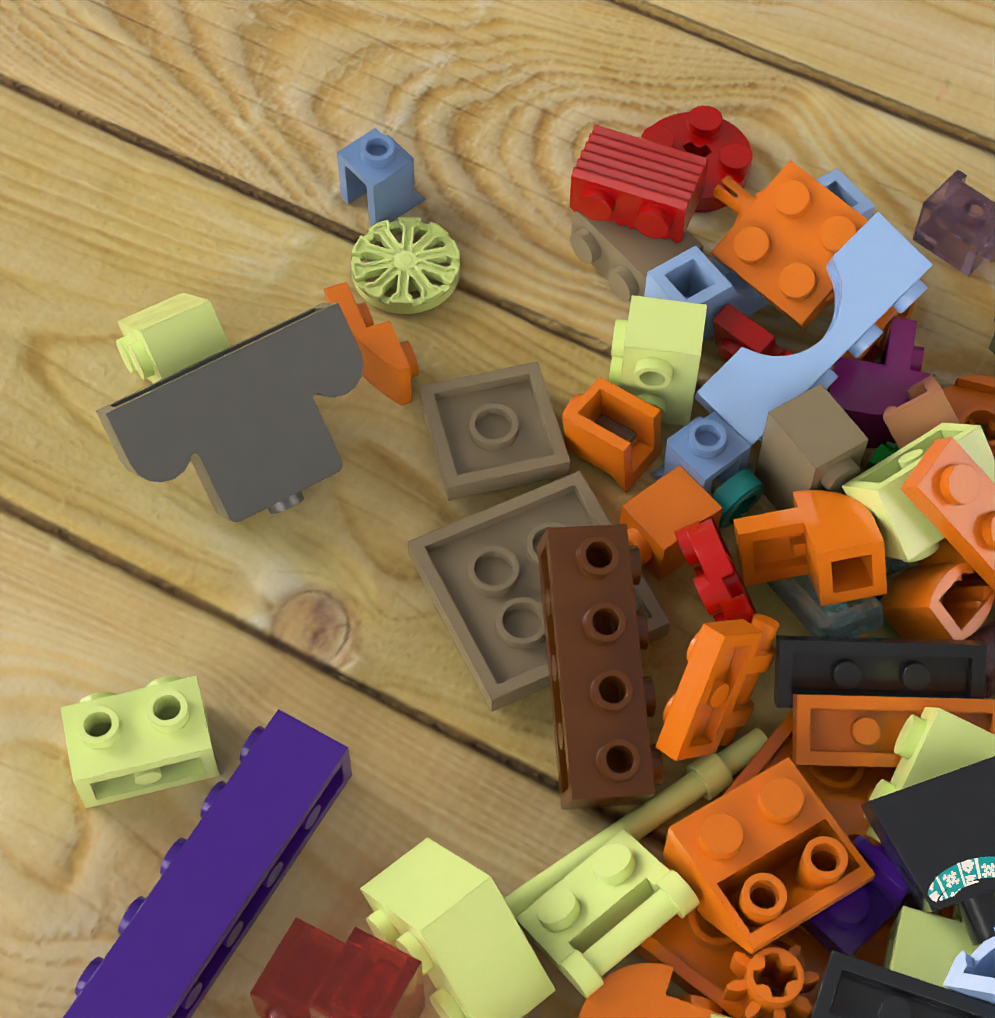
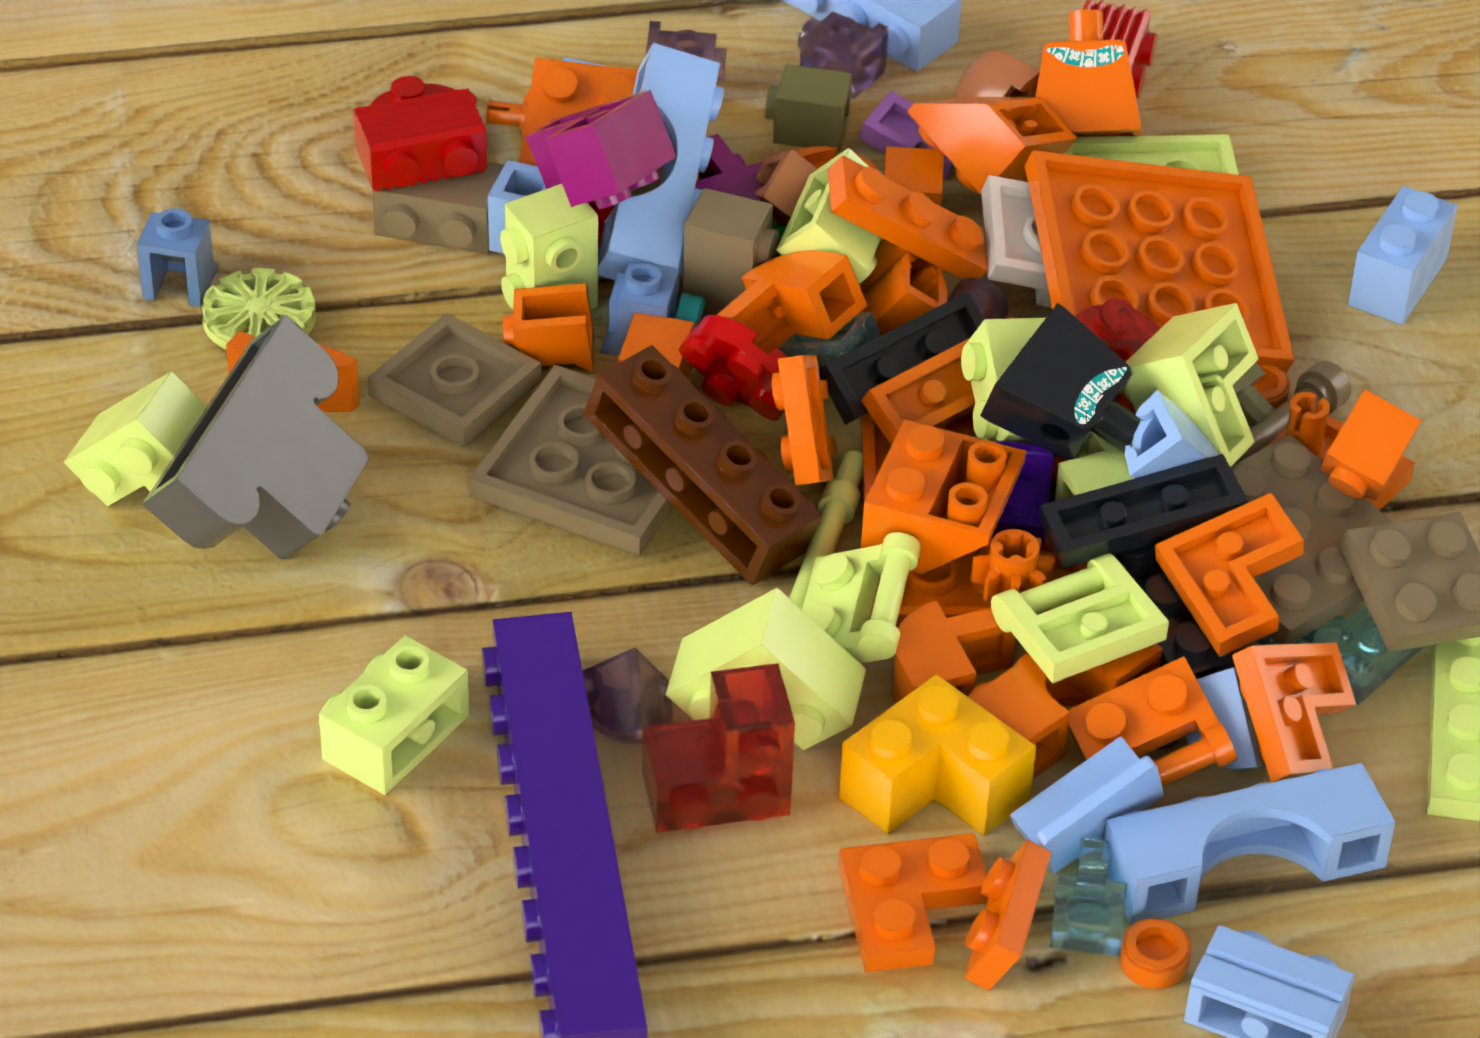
camera: 40 degrees left, 15 degrees down
(331, 866) = (626, 696): none -> brick
(751, 295) = (603, 150): none -> magenta brick

